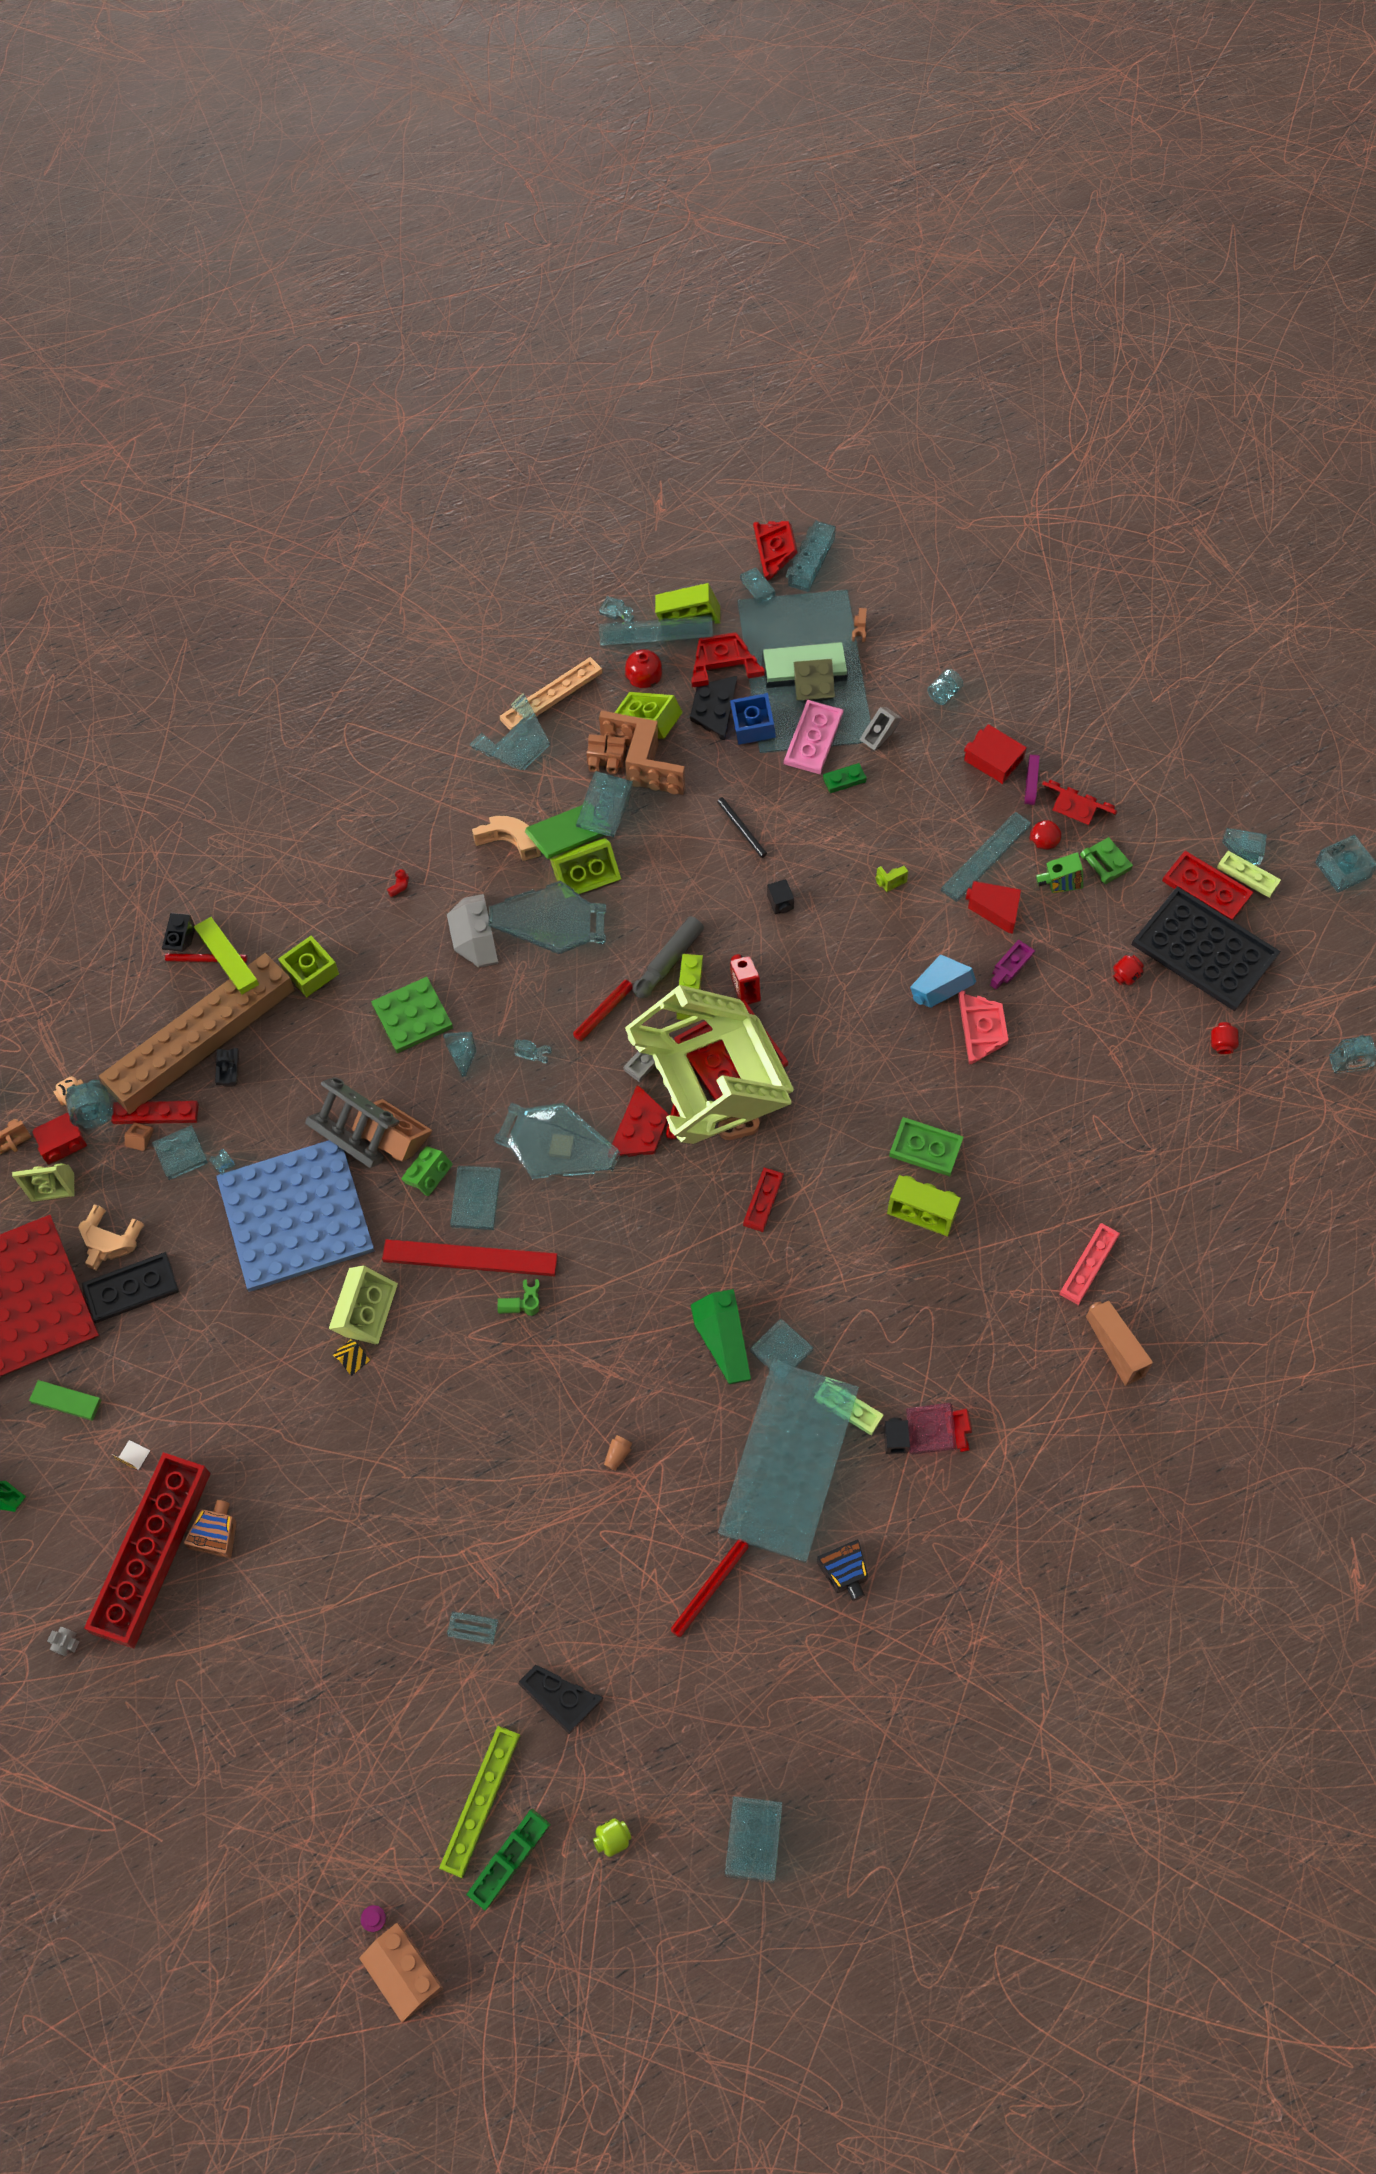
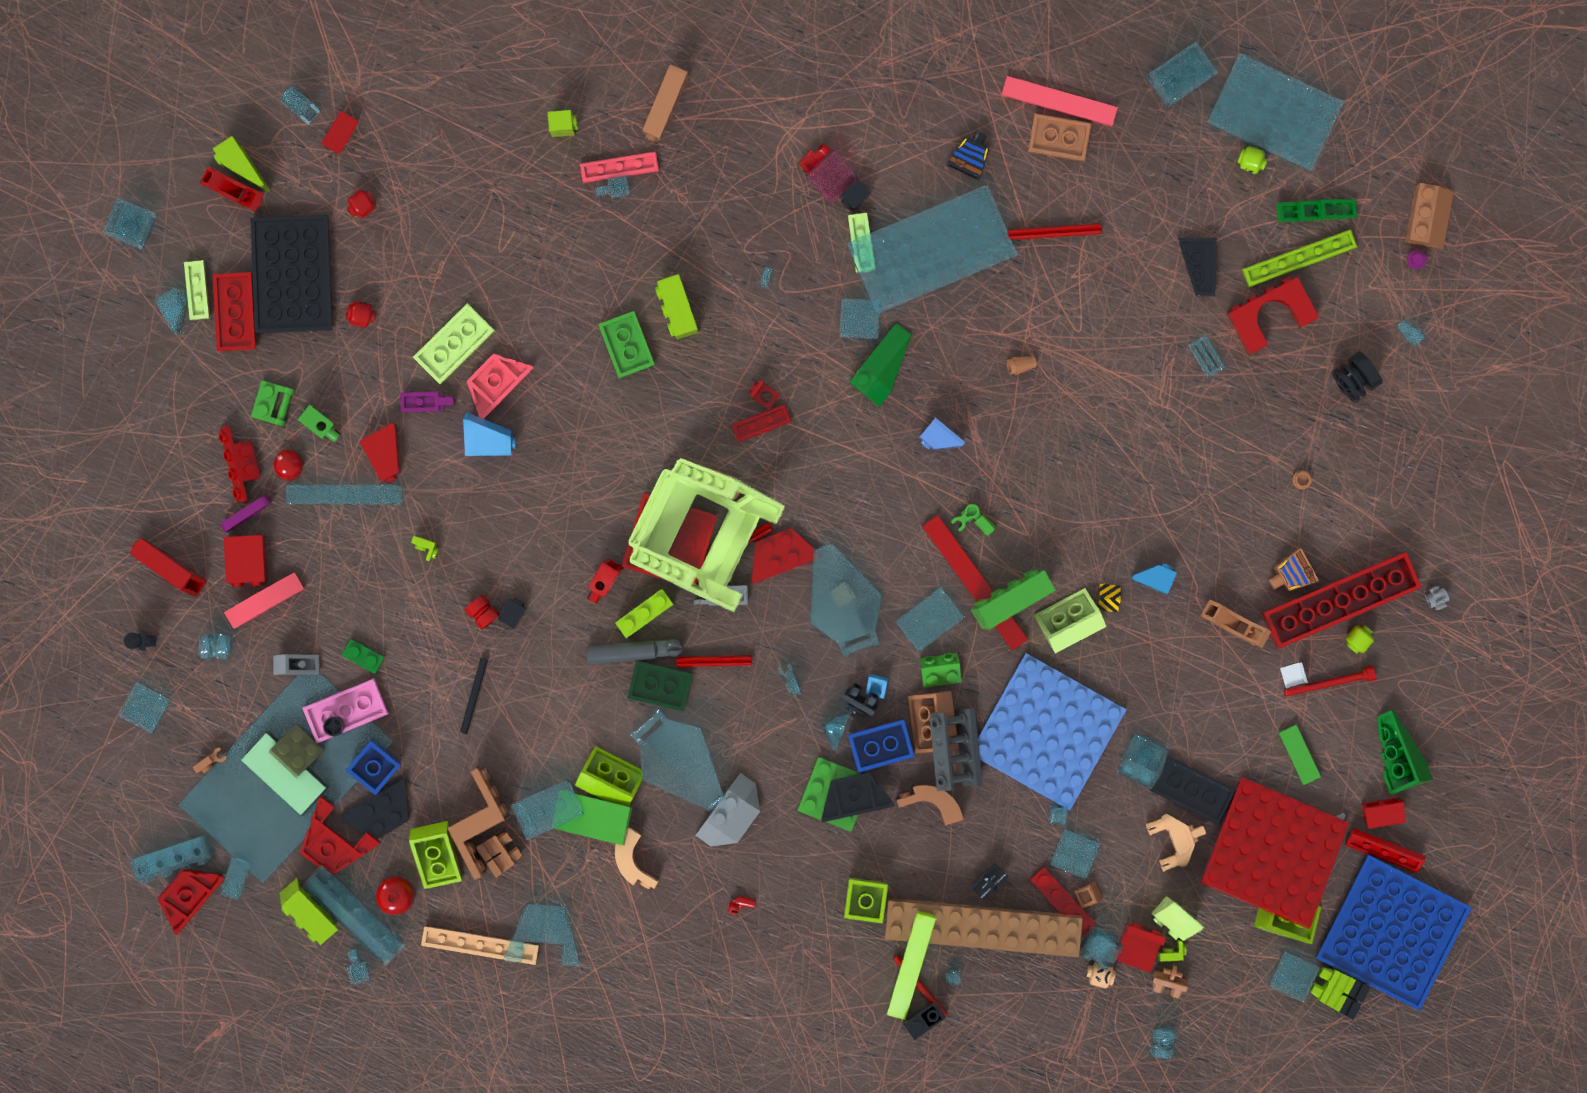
camera: 140 degrees left, 25 degrees up
(25, 1155) = (1170, 955): none -> lime bracket
(67, 1518) = (1365, 674): none -> red piece
(101, 1537) = (1359, 639): none -> lime head
(186, 983) = (953, 977): none -> clear light blue plate
(193, 1266) = (1143, 761): none -> clear light blue slope
(222, 1440) = (1235, 624): none -> nougat arch
(283, 1615) = (1302, 480): none -> nougat plate
(309, 1082) = (944, 801): none -> nougat arch
(312, 1845) = (1411, 333): none -> clear light blue cone
(321, 1746) = (1353, 379): none -> black wheel
(327, 1407) = (1156, 577): none -> dark azure slope
(393, 1020) = (853, 797): none -> black wing
(413, 1072) = (881, 745): none -> blue brick
(425, 1266) = (1015, 598): none -> bright green brick
(456, 1757) = (1245, 317): none -> red arch
(462, 1111) = (877, 685): none -> dark azure plate
(463, 1087) = (859, 703): none -> black hips
(616, 1329) = (940, 437): none -> medium blue slope
(621, 956) = (660, 685): none -> dark green plate
(638, 1906) = (1275, 112): none -> clear light blue plate
(793, 1216) = (757, 390): none -> red bracket
(793, 1670) = (1059, 137): none -> nougat tile
(801, 875) = (482, 612): none -> red wheel
(809, 714) = (333, 726): none -> black wheel
(828, 1701) = (1059, 101): none -> coral tile
(886, 1300) = (766, 278): none -> clear light blue tile
(940, 616) = (144, 707): none -> clear light blue plate
(950, 743) = (264, 600): none -> coral slope
(994, 643) = (139, 640): none -> black hips
(1034, 698) = (167, 567): none -> red slope
(1042, 1022) = (453, 344): none -> yellowish green tile
(1073, 1243) = (616, 188): none -> clear light blue plate
(1169, 1240) = (562, 123): none -> lime brick
(1304, 1068) = (339, 132): none -> red hinge
(1318, 955) = (231, 189): none -> red arch
(1334, 974) = (234, 157): none -> lime slope

